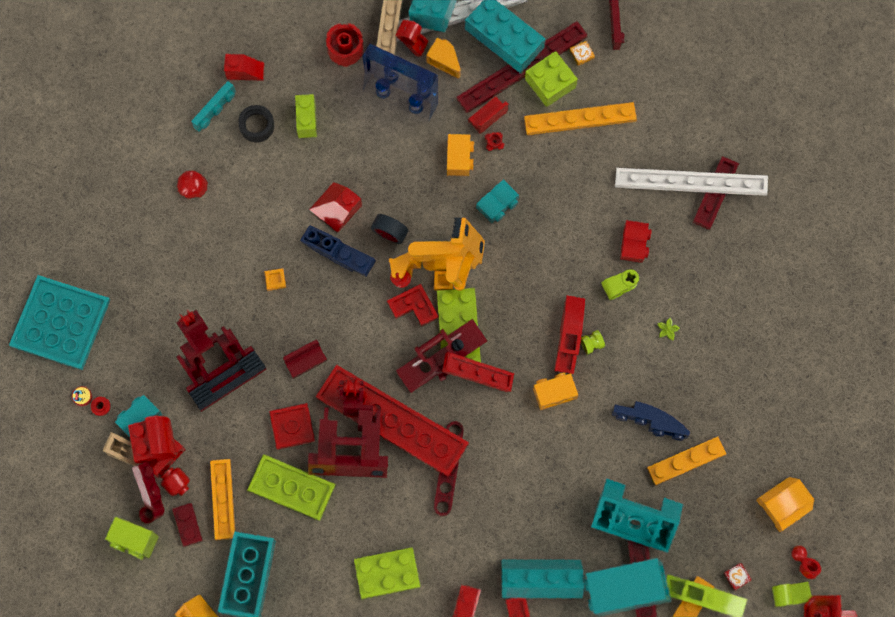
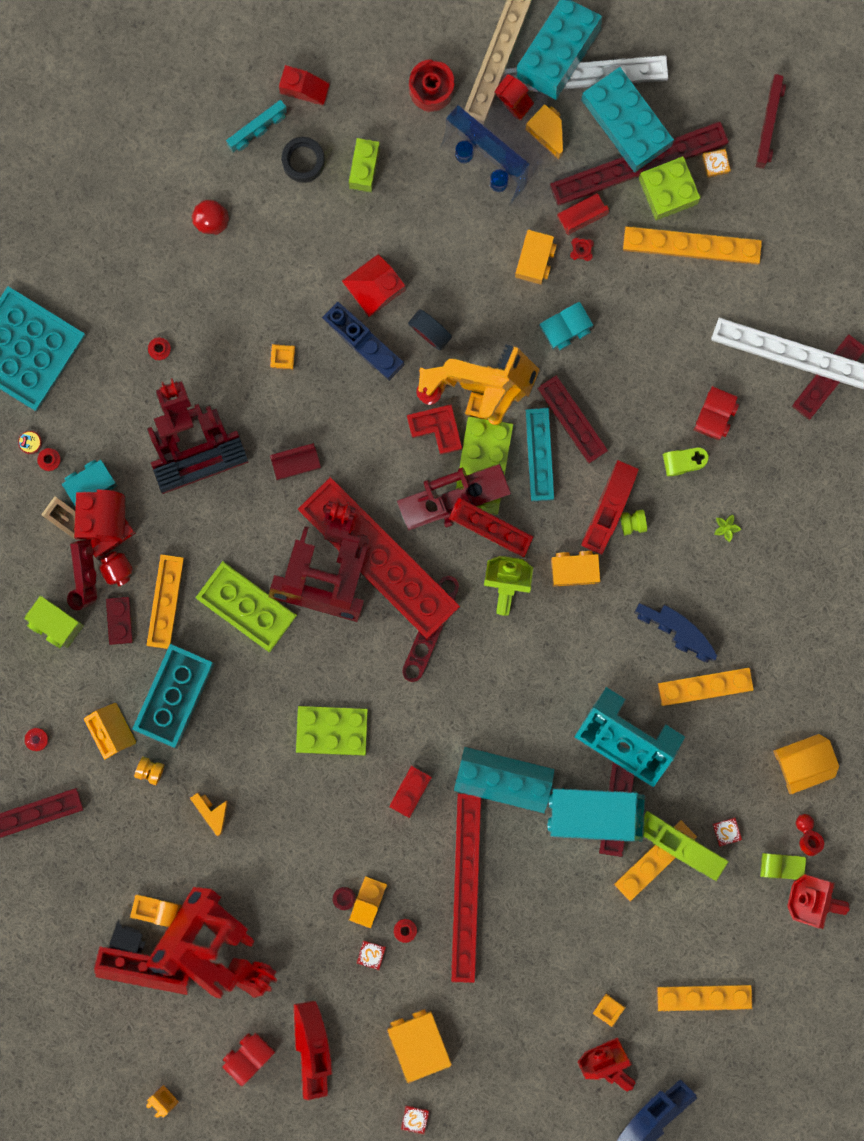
camera: 15 degrees right, 10 degrees up
(175, 301) = (159, 355): none -> red plate
(292, 426) = (262, 536): red plate -> none
(502, 307) = (539, 454): none -> teal plate
(502, 408) = (508, 576): none -> lime piece
(521, 273) = (572, 419): none -> dark red plate

